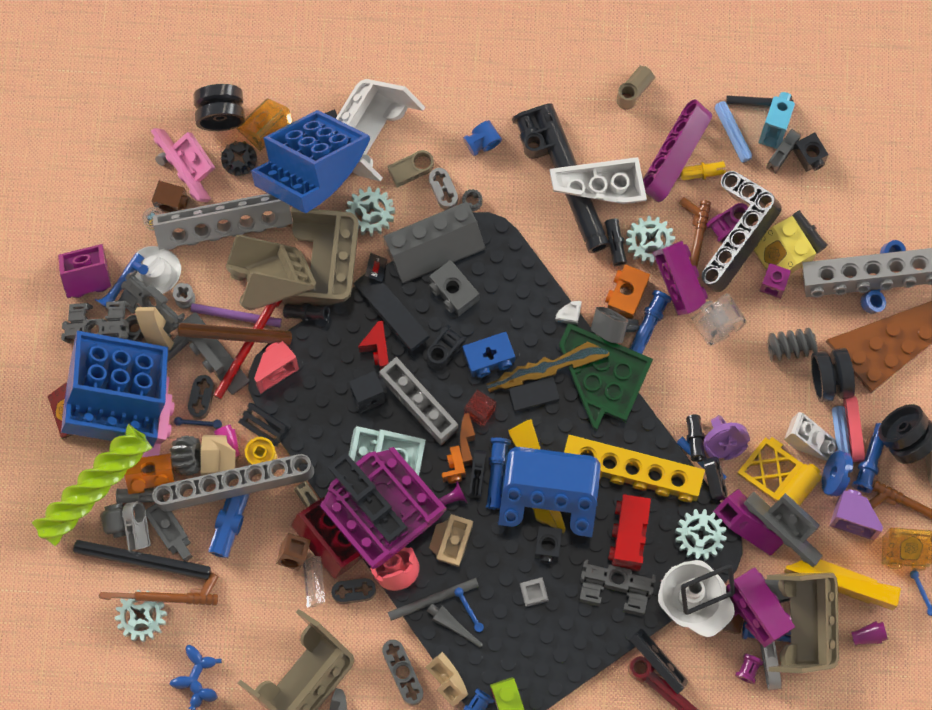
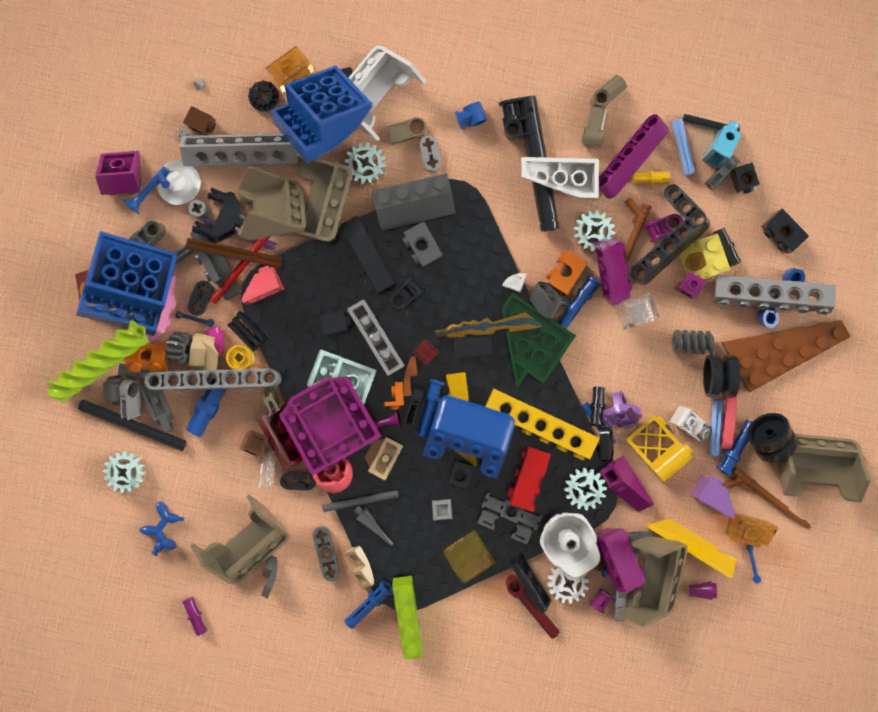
camera: 10 degrees right, 15 degrees up
(109, 327) = (130, 228): dark grey piece -> none
(137, 293) = (160, 205): dark grey piece -> none
(152, 326) = (166, 233): tan slope -> none
(188, 160) = (219, 90): bright pink bracket -> none
(196, 596) = (170, 463): dark orange piece -> none
(219, 107) = (252, 49): black wheel -> none
(221, 302) = (228, 220): none -> black connector
(306, 312) = (298, 243): black pin -> none
(367, 498) = (318, 417): black slope -> none
(376, 267) = (361, 214): black sticker -> none
(376, 341) = (351, 278): red slope -> none
(459, 593) = (392, 529): blue hinge -> none
(475, 194) = (456, 163): dark grey bush -> none
(498, 347) = (450, 300): blue brick -> none
(578, 643) = (469, 557): none -> clear yellow slope
(615, 242) = (565, 226): black pin -> none
(627, 132) = (594, 133): none -> dark tan piece
(683, 589) = (561, 555): black piece -> none
(696, 644) = (560, 586): none -> white gear
(789, 523) = (658, 493): dark grey bracket -> none
(835, 473) = (706, 458): blue tile -> none
(866, 191) = (795, 234): none -> black brick

